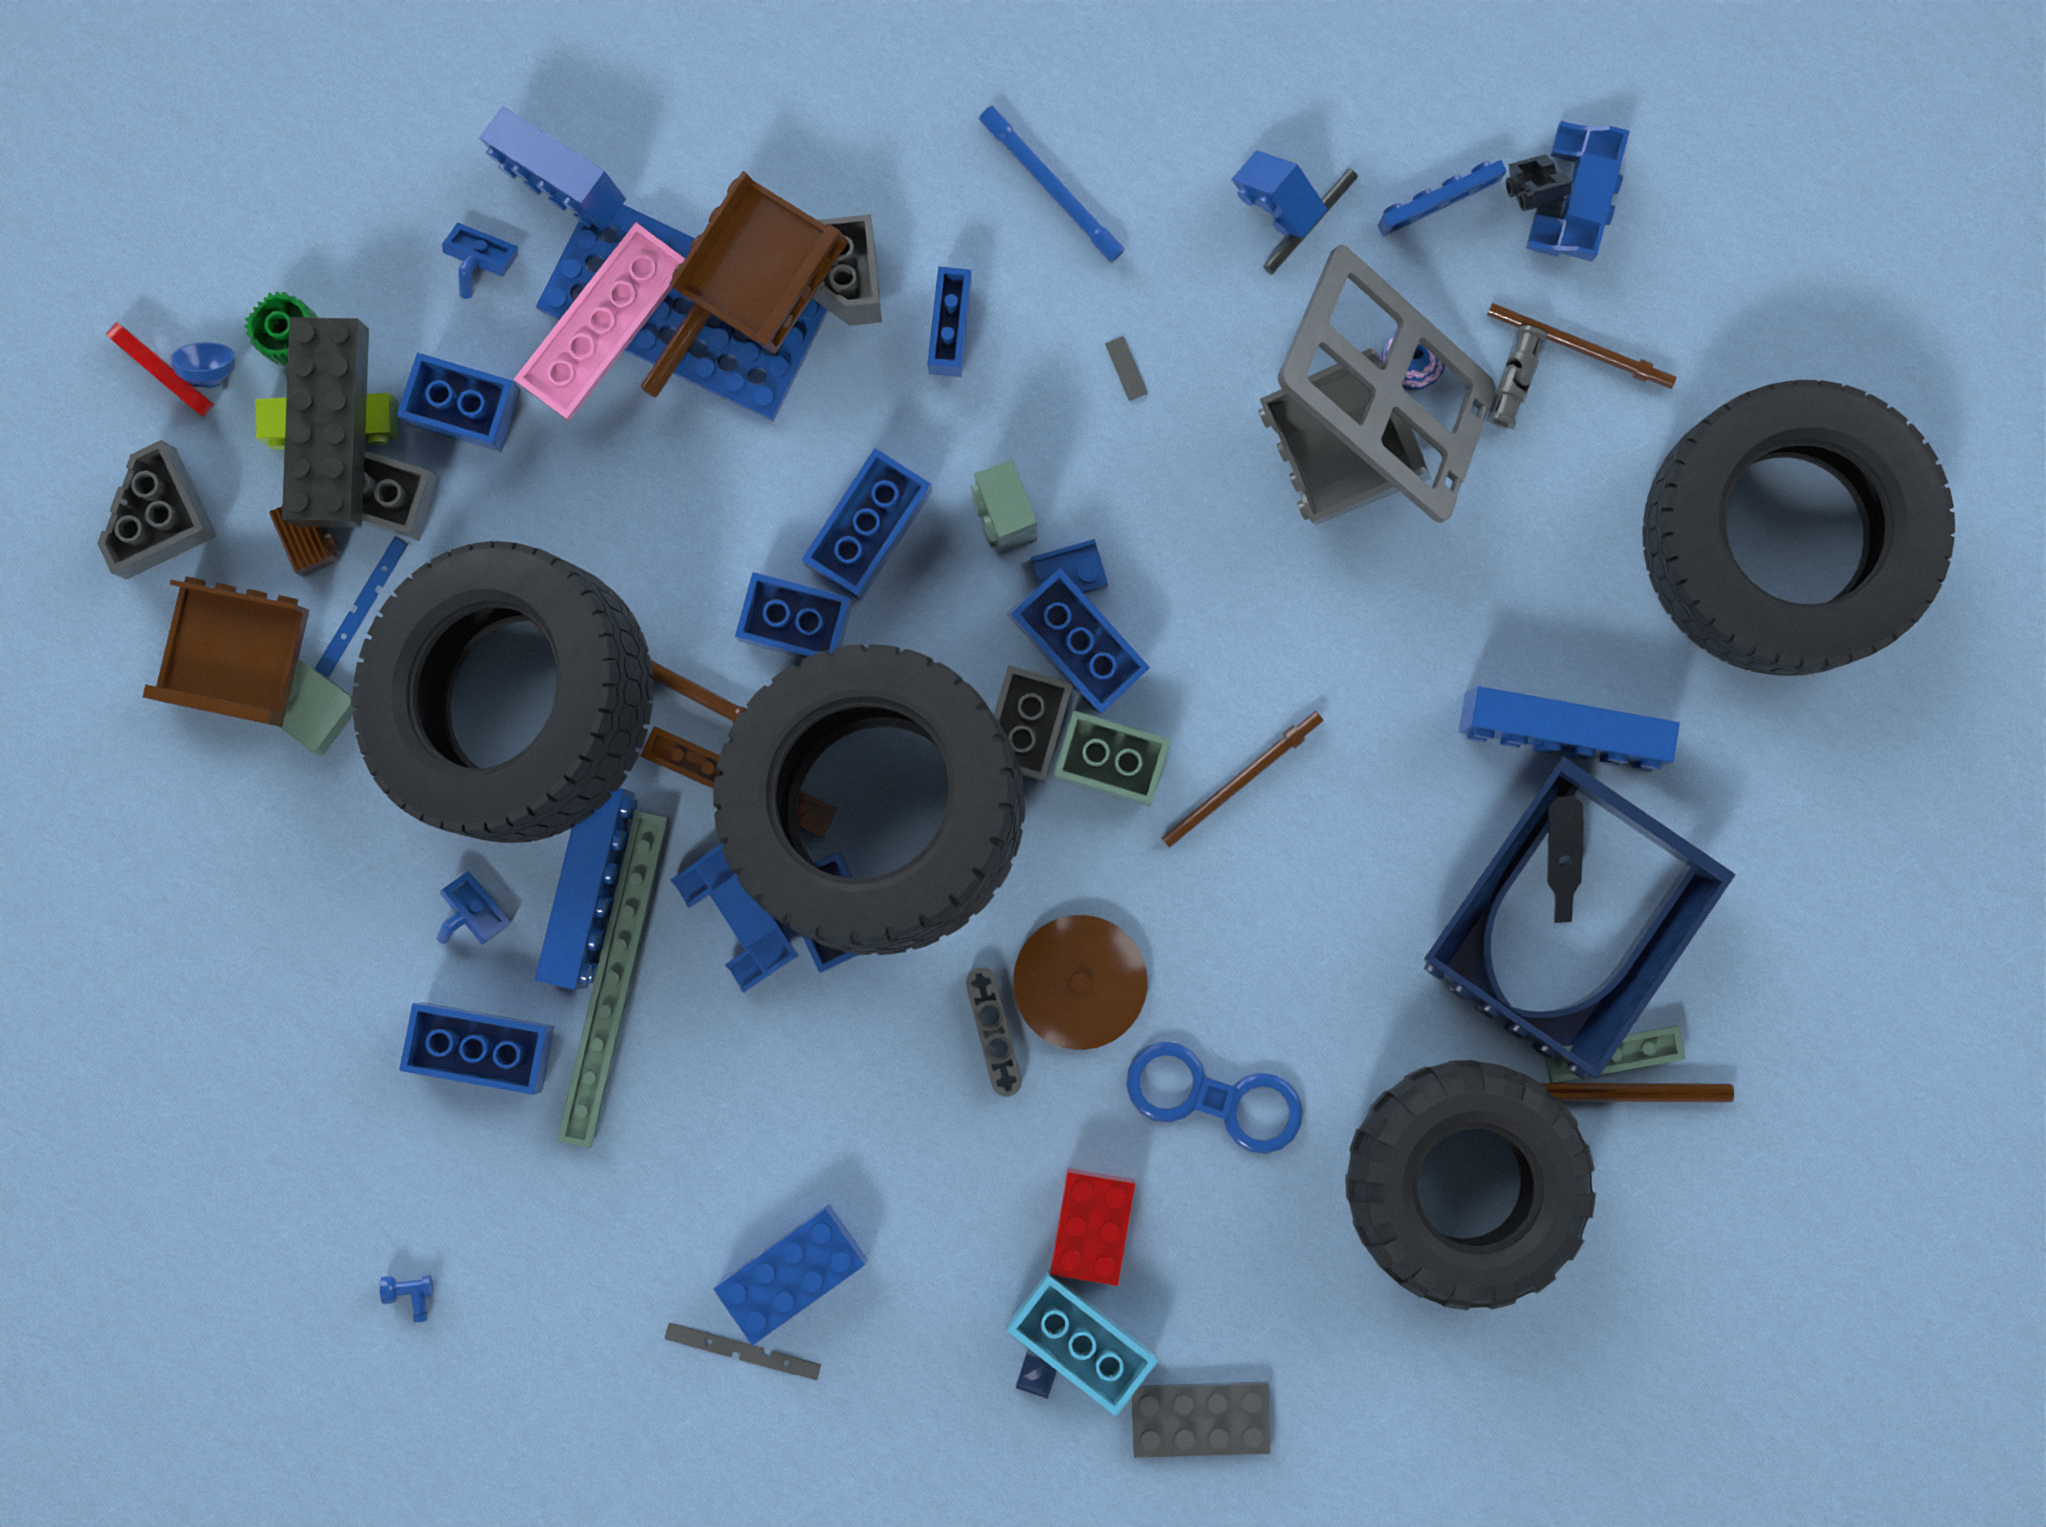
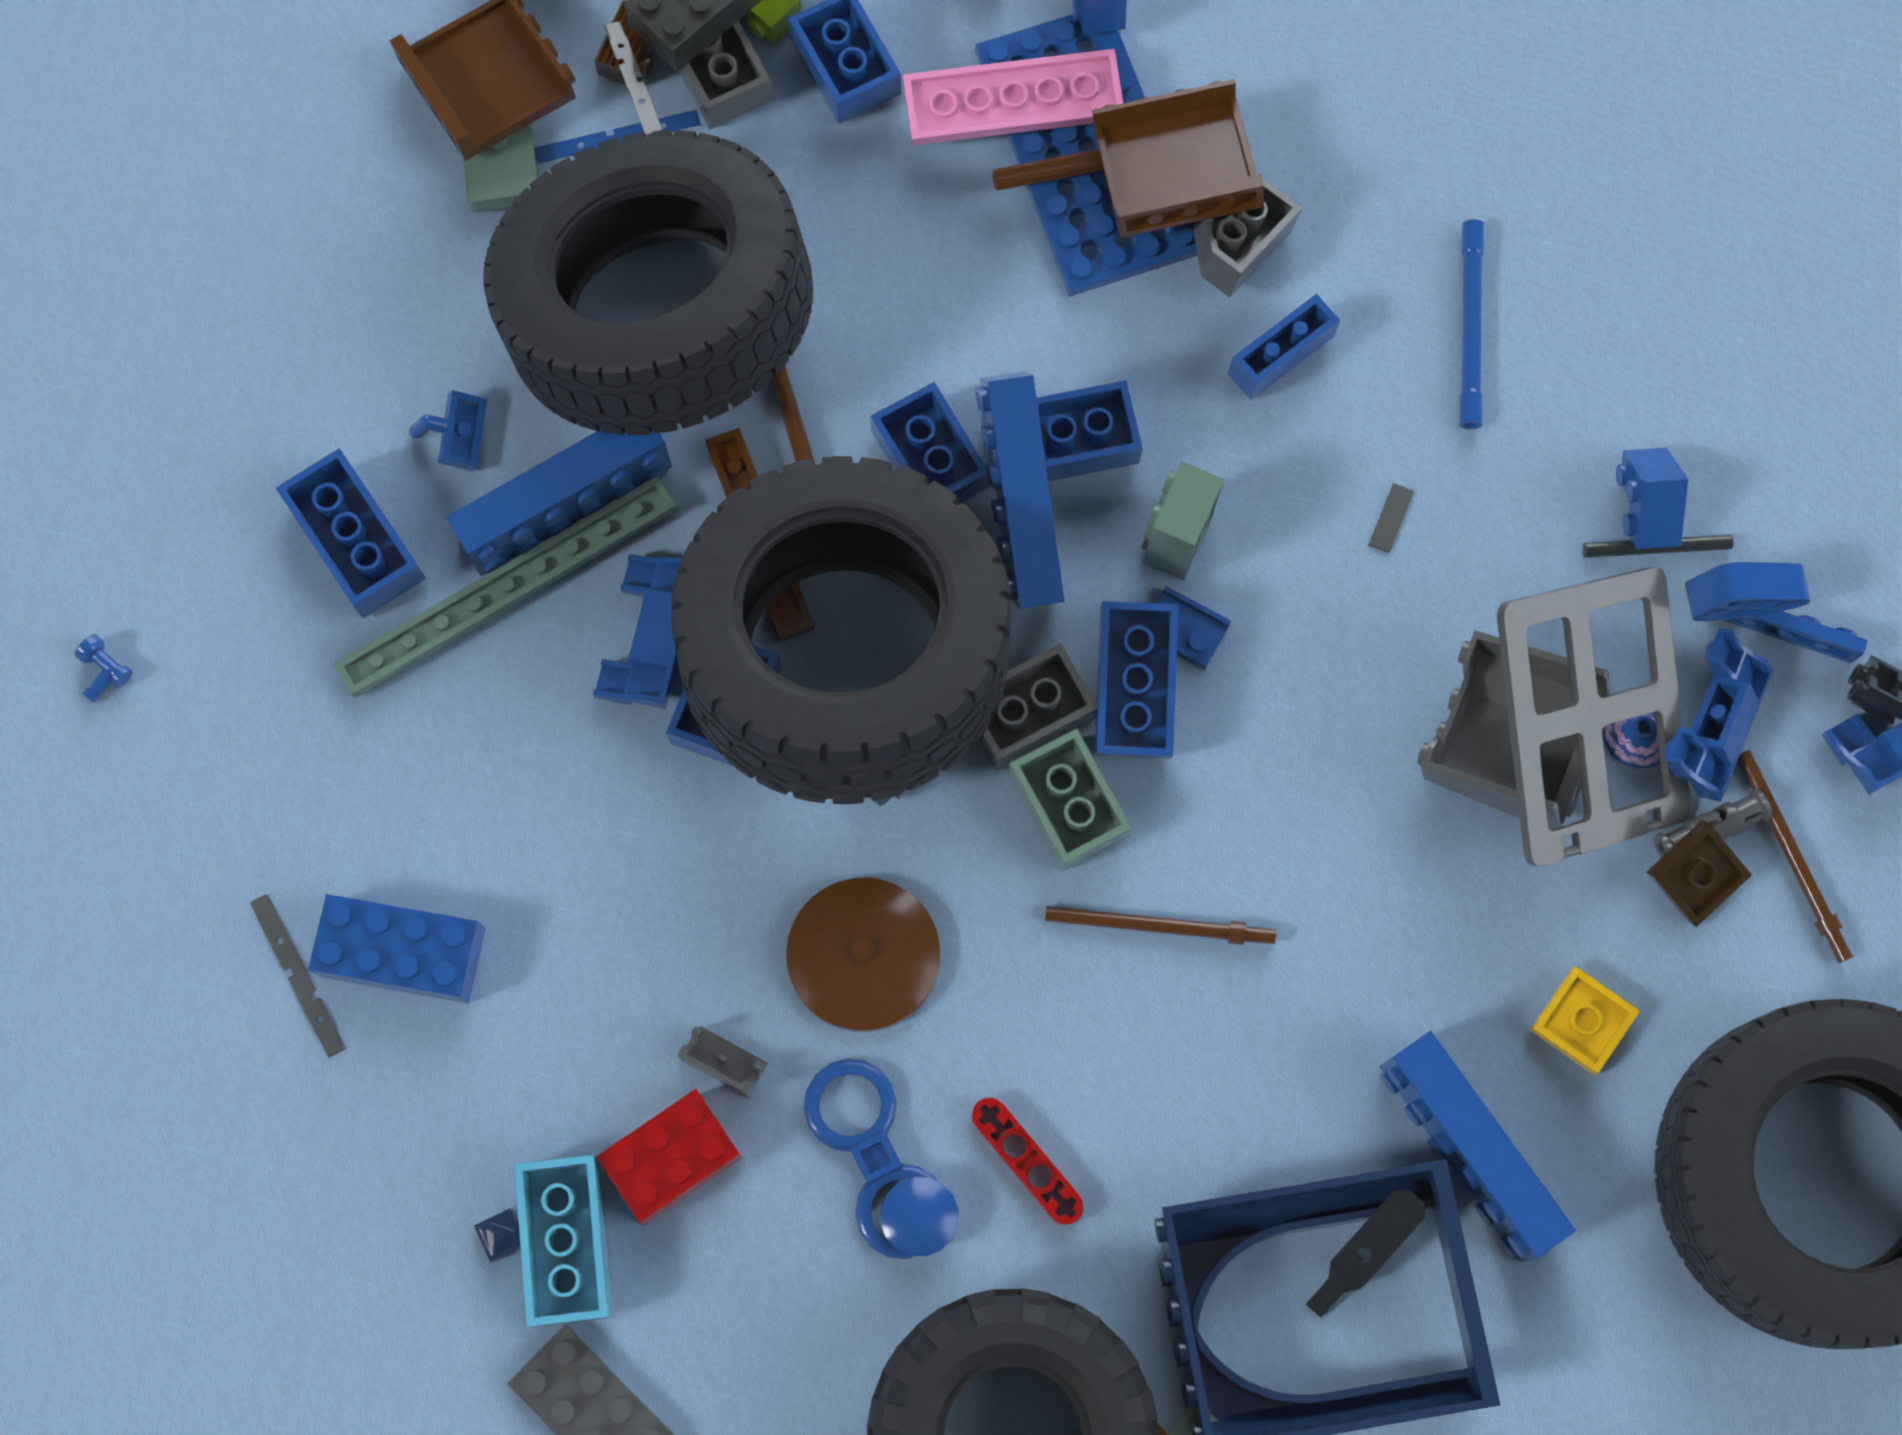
camera: 45 degrees right, 10 degrees down
(333, 560) = (630, 71): none -> piece
(885, 590) = (1021, 488): none -> blue brick
(990, 1032) = (750, 921): dark grey beam -> none
(1062, 1135) = (722, 1060): none -> dark grey hinge
(1278, 1107) = (919, 1216): none -> blue dish
(1307, 1006) = (1023, 1164): none -> red beam
(1401, 203) = (1746, 590): none -> blue beam
(1456, 290) = (1727, 711): none -> blue bracket
(1538, 417) = (1699, 873): none -> dark brown plate
(1555, 579) = (1584, 1020): none -> yellow plate

